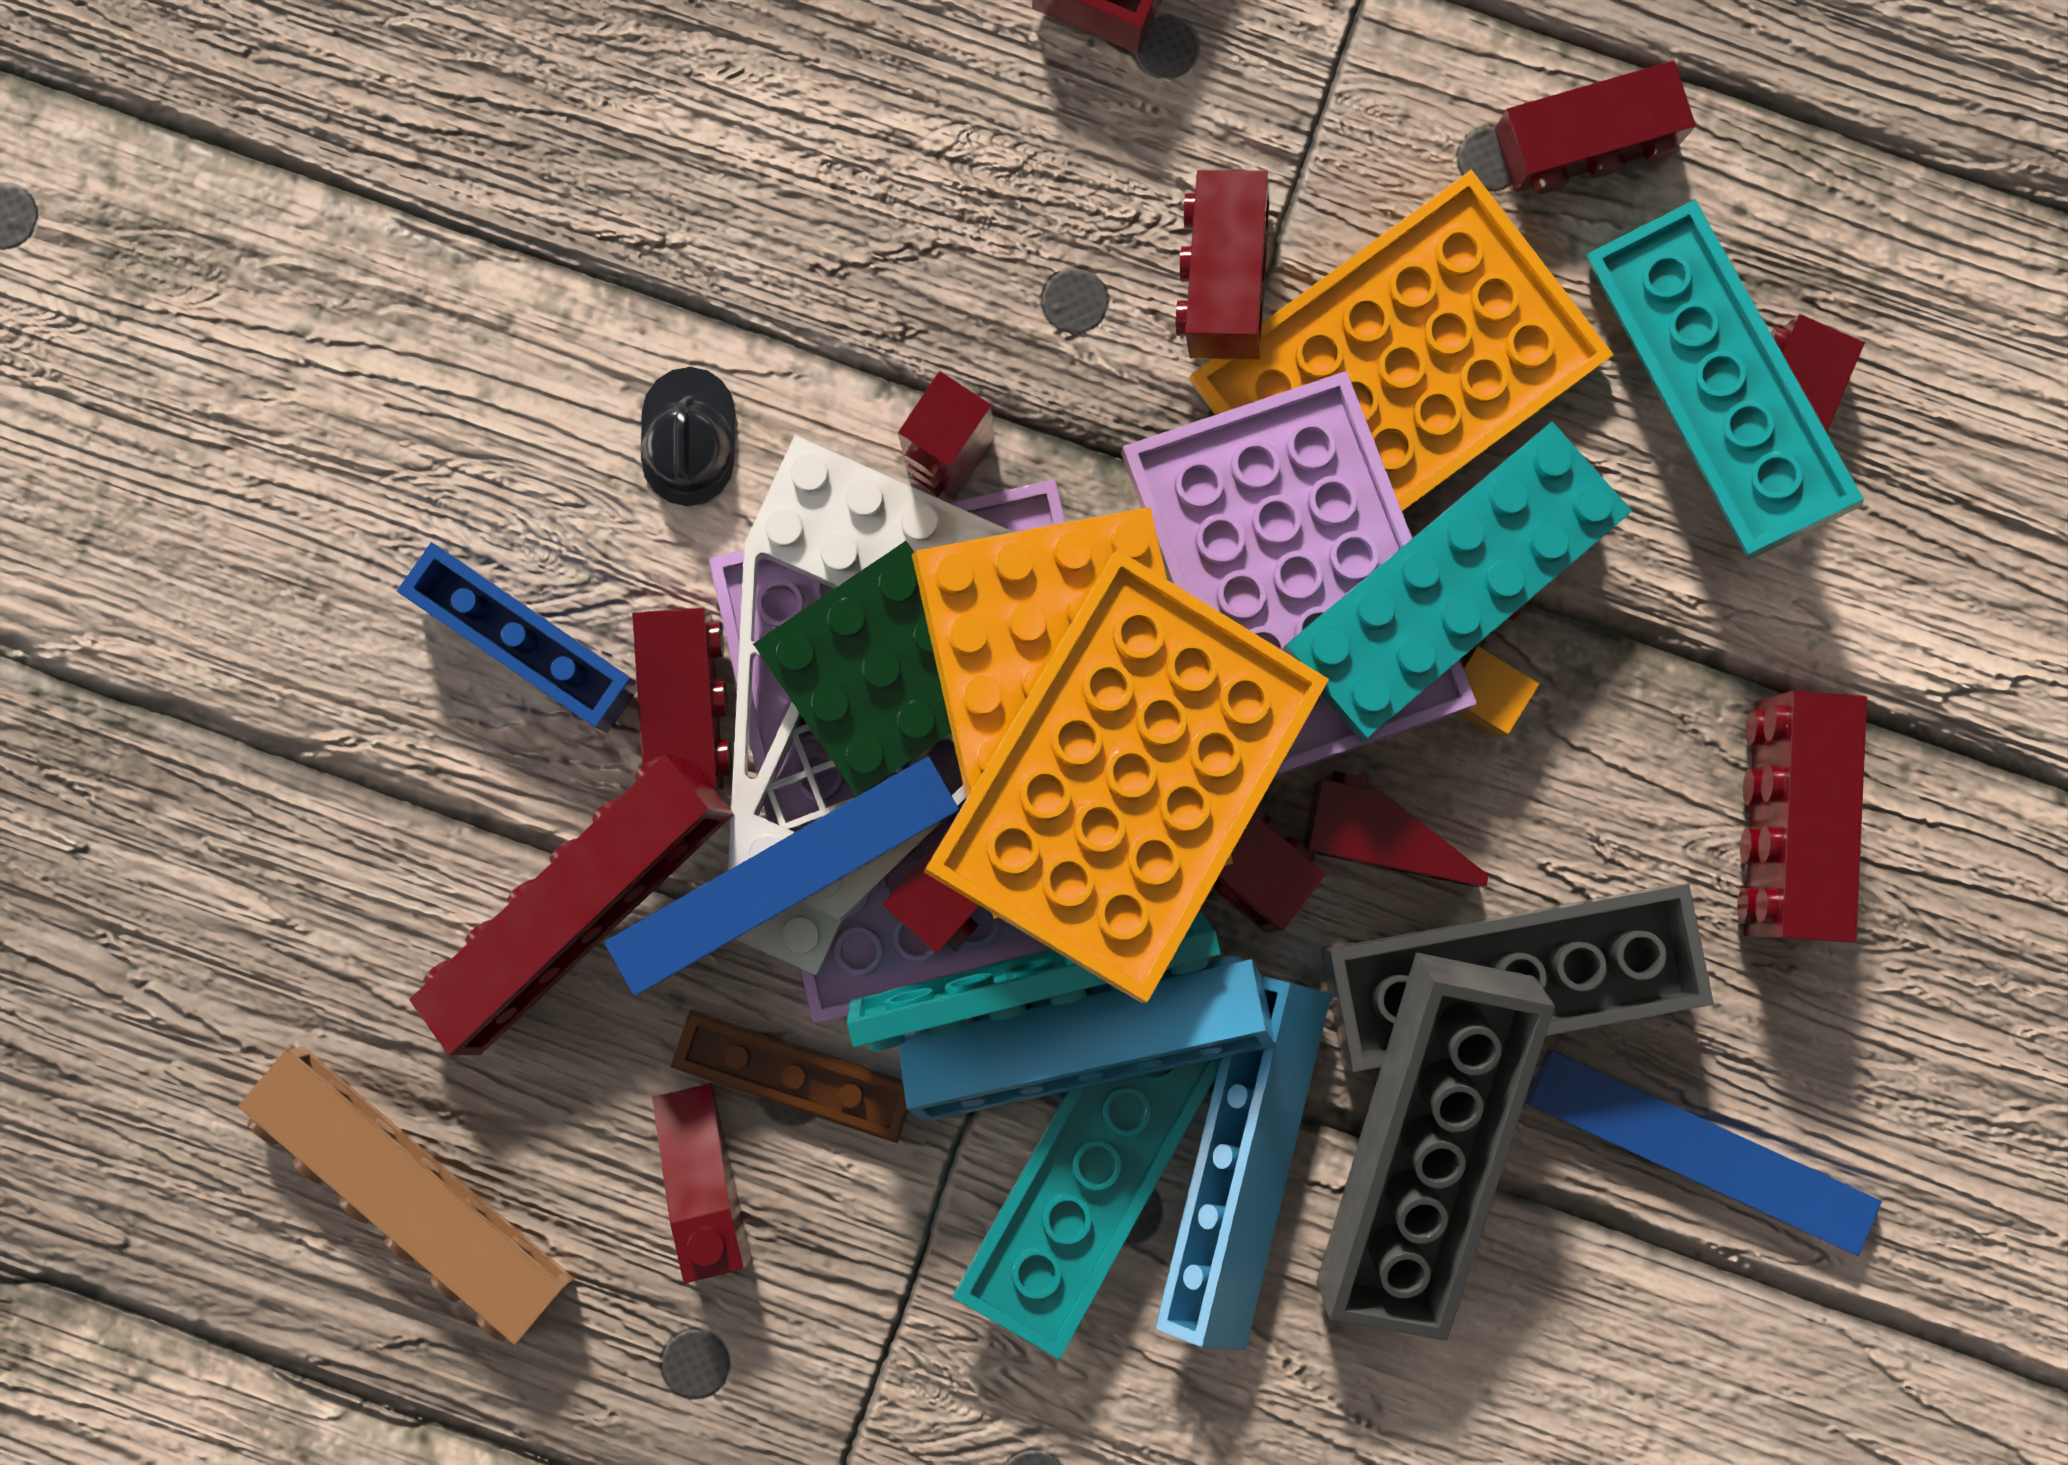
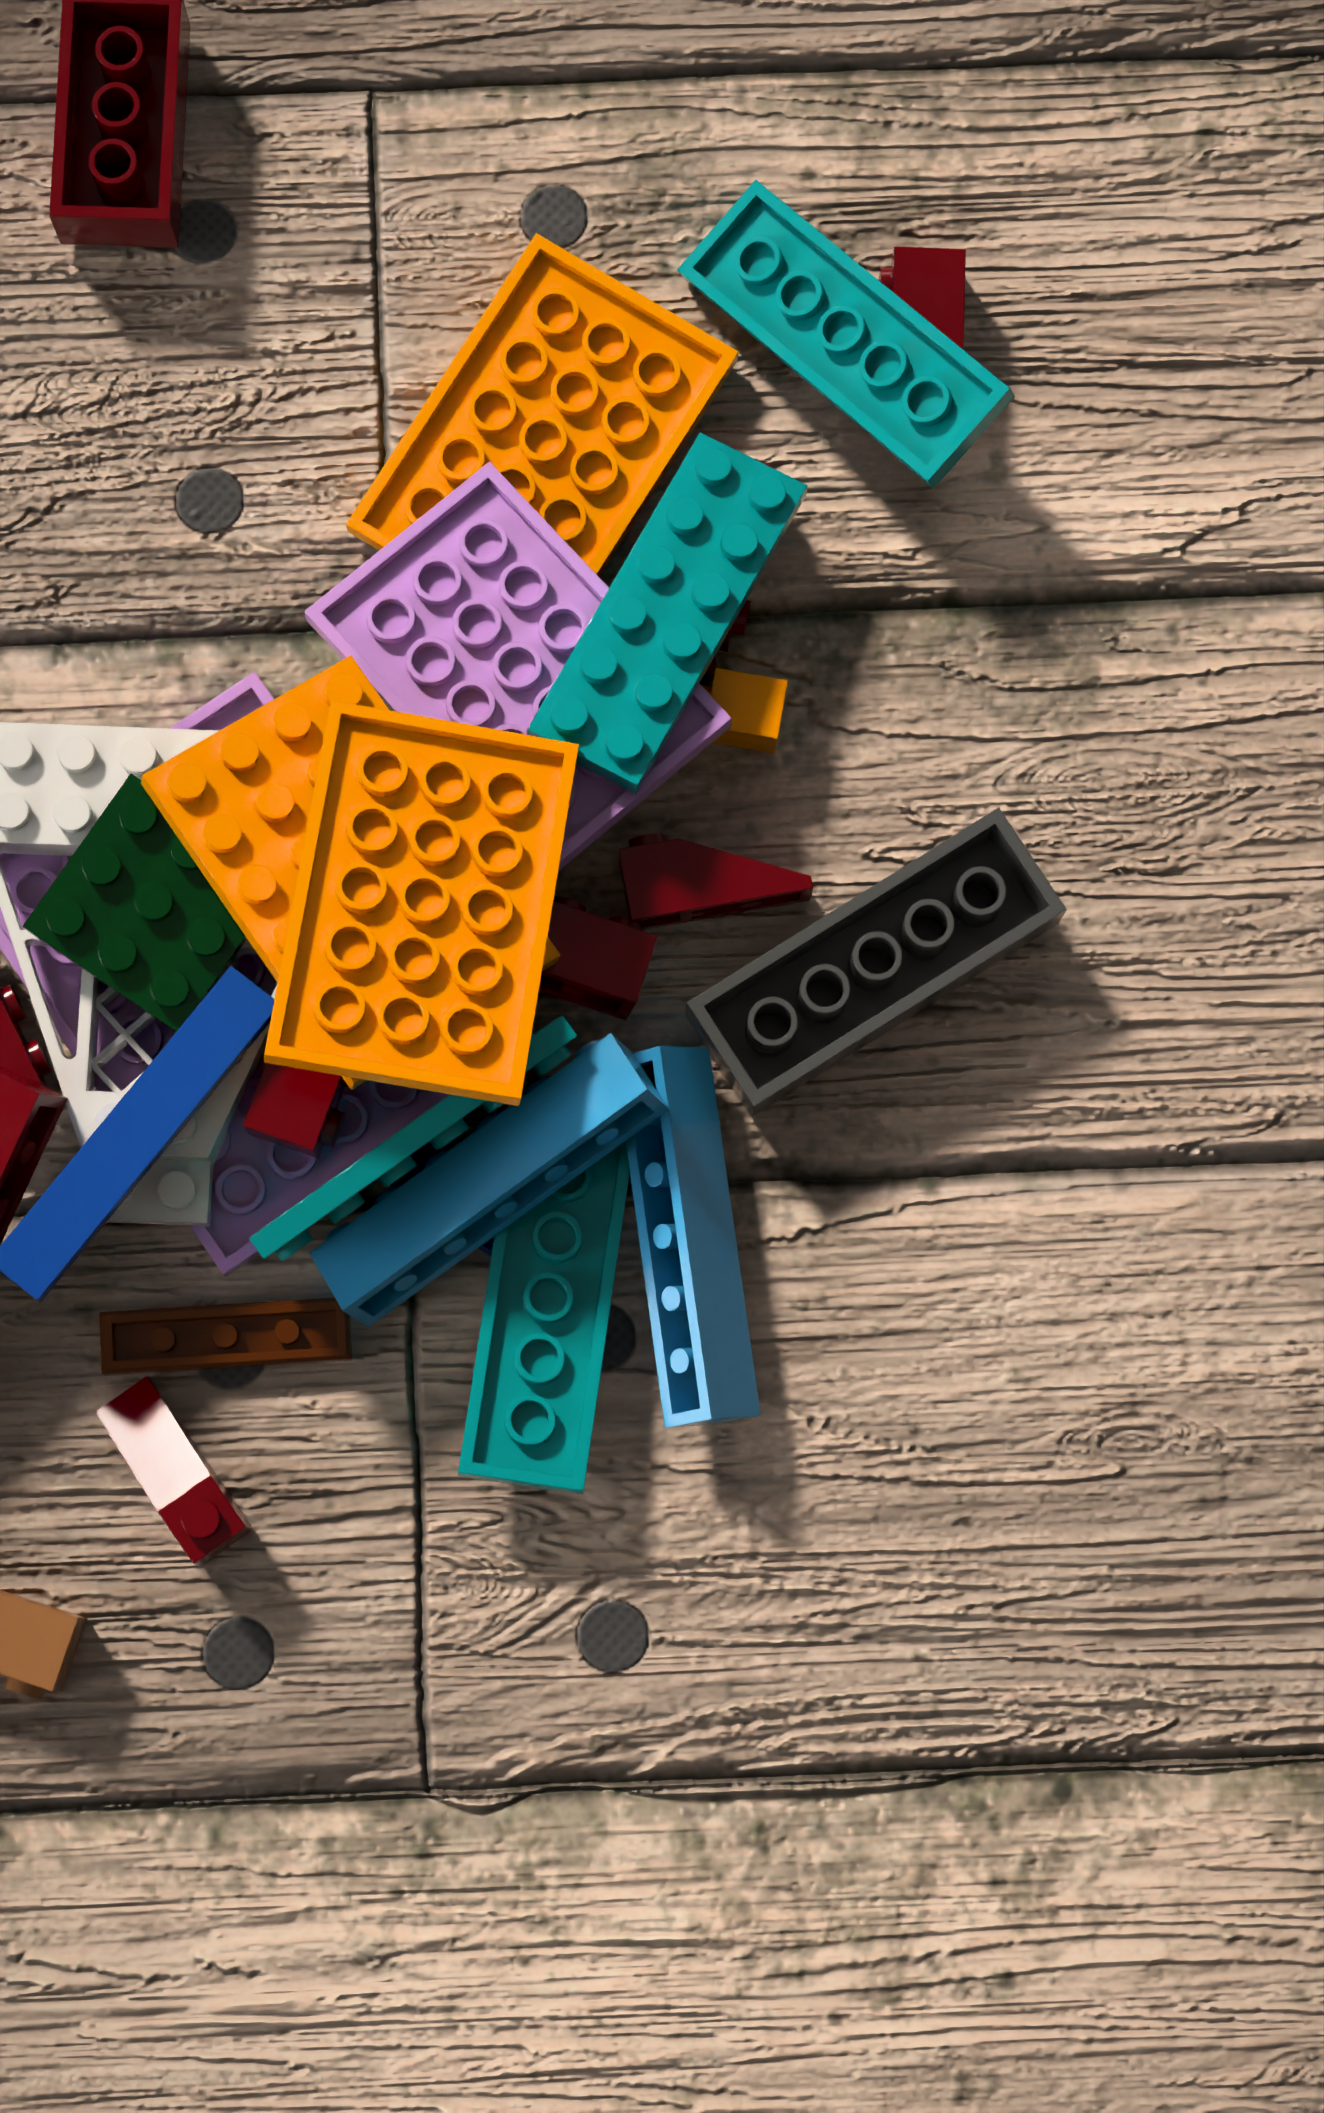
camera: 20 degrees left, 5 degrees down
(946, 437) = (132, 665): dark red brick -> none
(1225, 264) = (337, 409): dark red brick -> none
(1433, 1146) = (853, 1143): dark grey brick -> none
(1595, 128) = (637, 151): dark red brick -> none
(1703, 1152) = (1123, 1060): blue tile -> none
(1804, 817) = (1083, 707): dark red brick -> none

